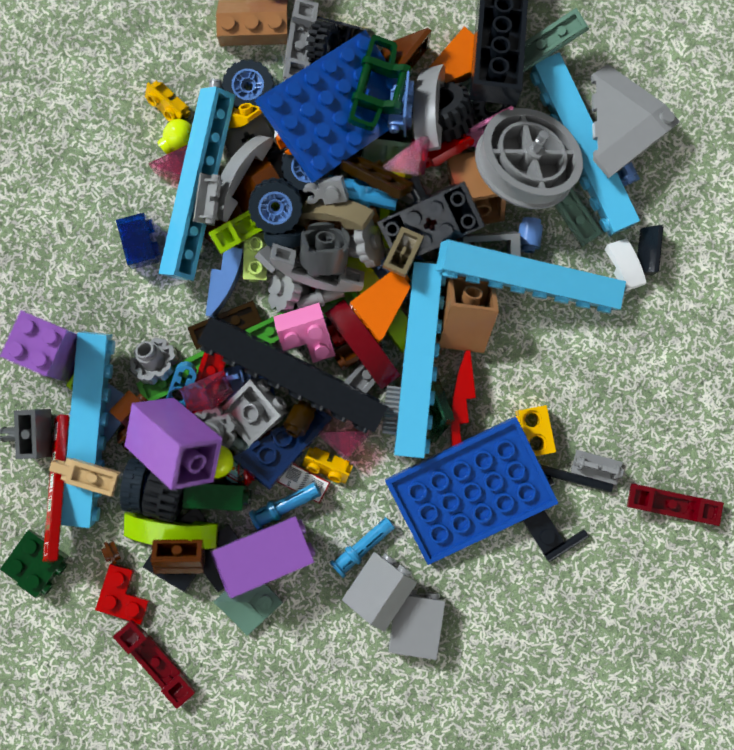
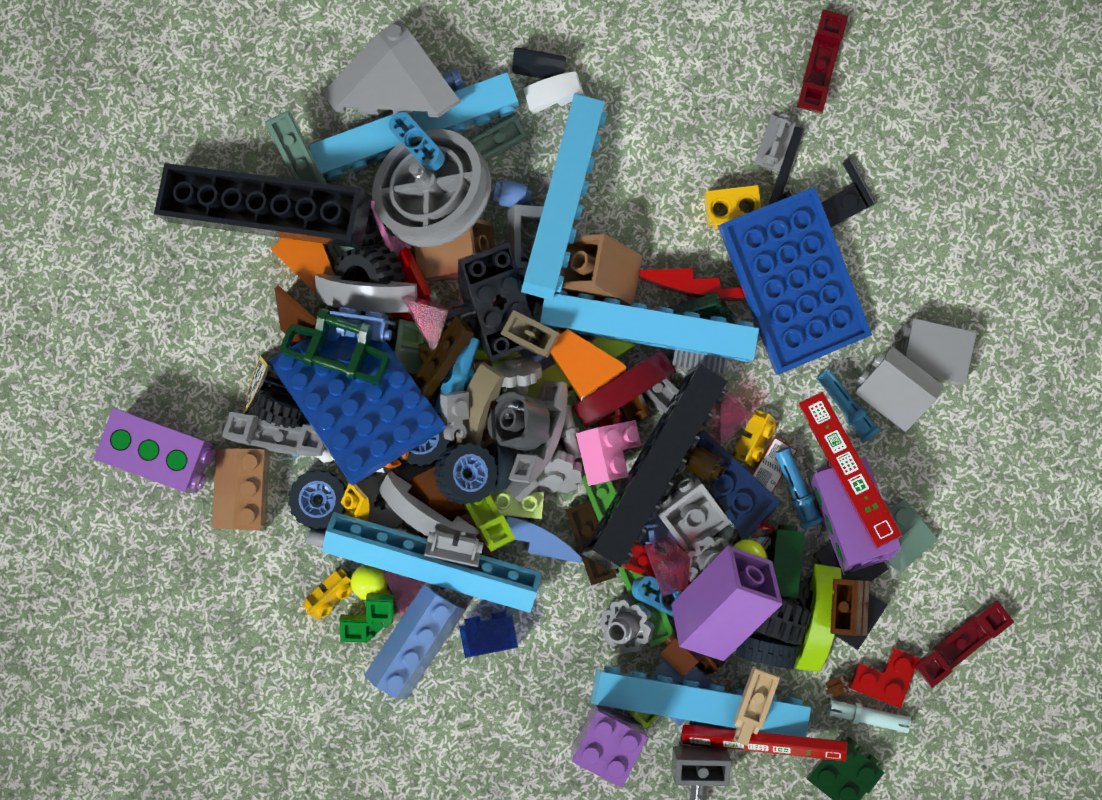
camera: 80 degrees left, 0 degrees up
(86, 581) = (857, 713): none -> light aqua pin
(126, 176) = (414, 643): none -> medium blue slope
(138, 132) = (364, 627): none -> green tile
(299, 548) = (850, 470): none -> red tile
(566, 149) = (419, 150): none -> dark azure beam

